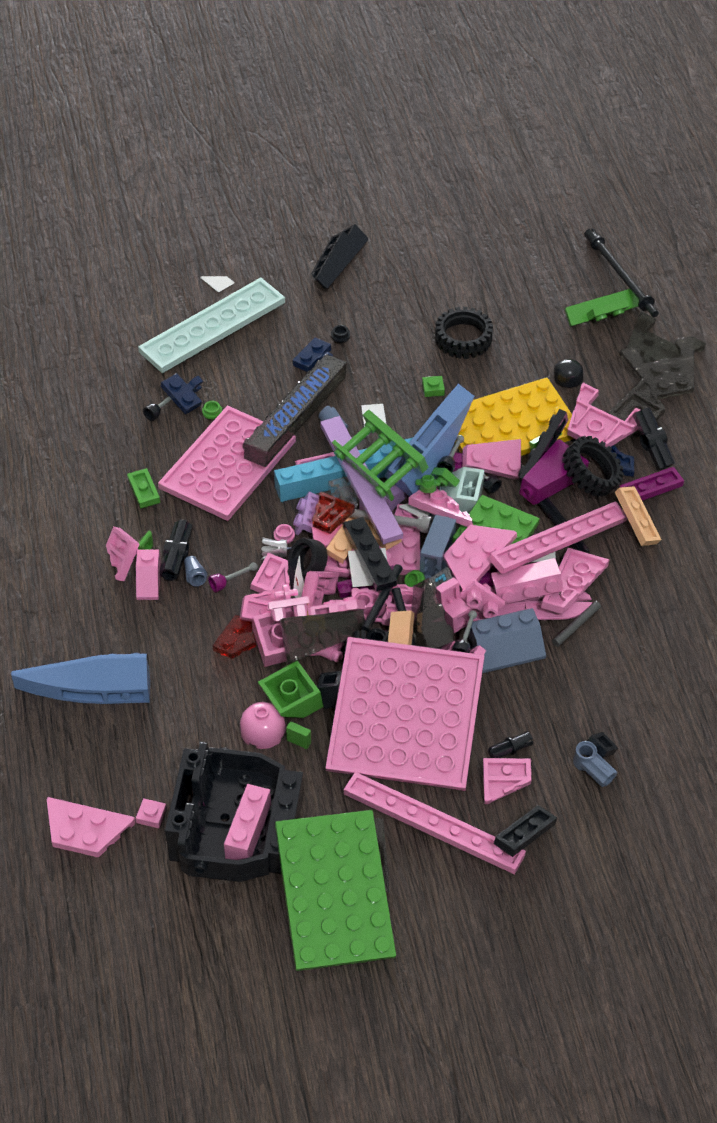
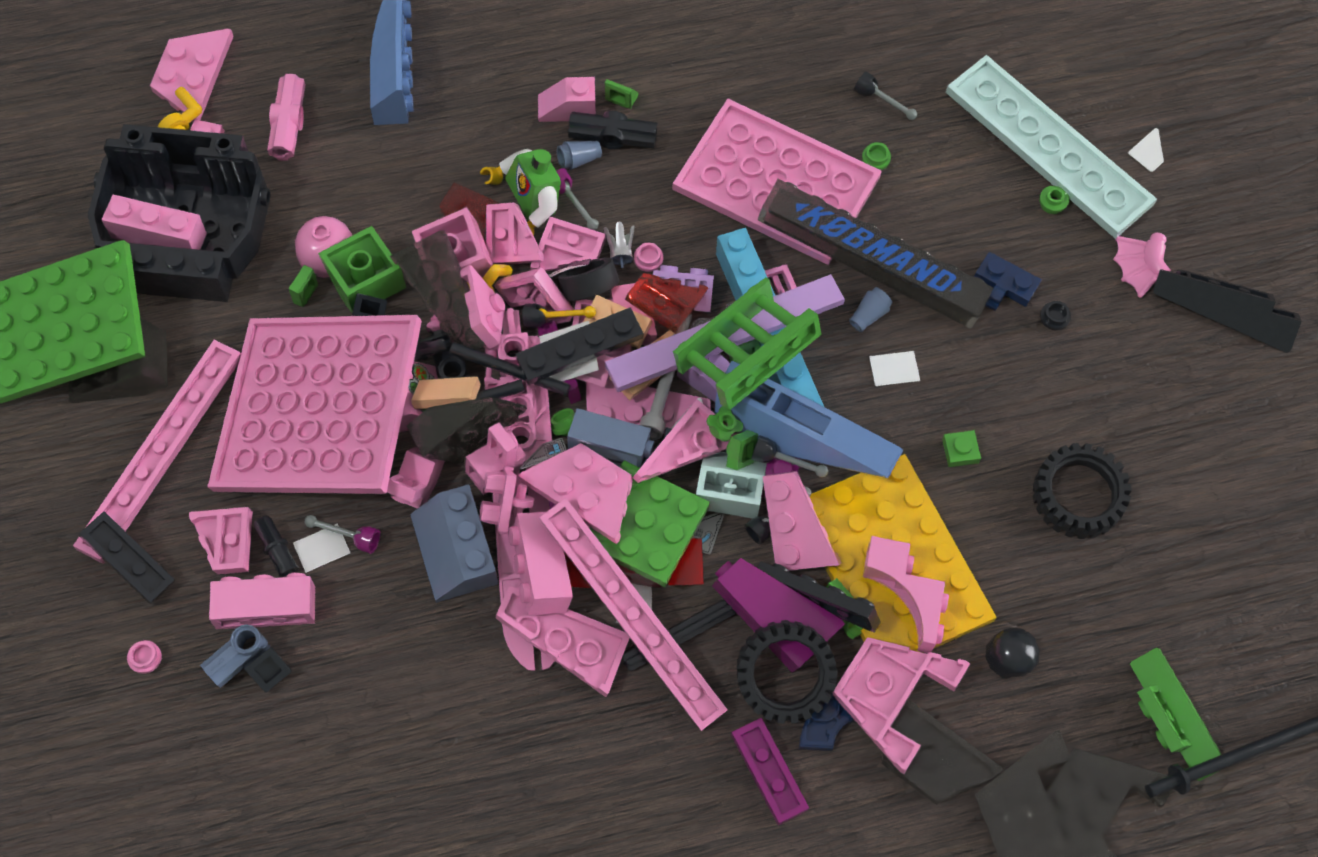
camera: 85 degrees right, 15 degrees up
(122, 551) = (602, 69): bright pink wing -> none
(141, 753) = (286, 117): none -> bright pink piece
(143, 488) = (721, 85): bright green plate -> none
(144, 829) = (178, 120): none -> yellow plate
(183, 393) = (904, 115): dark blue plate -> none
(221, 592) = (531, 181): none -> torso
(254, 327) = (1050, 205): none -> bright green plate
(278, 607) = (477, 239): bright pink hips -> none
(303, 292) = (1141, 261): none -> bright pink arm
(336, 588) = (535, 315): none -> hinge
(462, 645) = (419, 471): hinge -> none
(502, 693) = (364, 538): none -> hinge
(507, 723) = (320, 549): none -> white sticker
(544, 400) = (892, 566): none -> bright pink arch
(553, 750) = (262, 601): none -> bright pink brick
(572, 627) = (494, 646): dark grey bar -> none
(596, 823) = (144, 657): none -> bright pink plate
(637, 516) = (695, 741): light nougat plate -> none
(653, 439) = (855, 772): black piece -> none

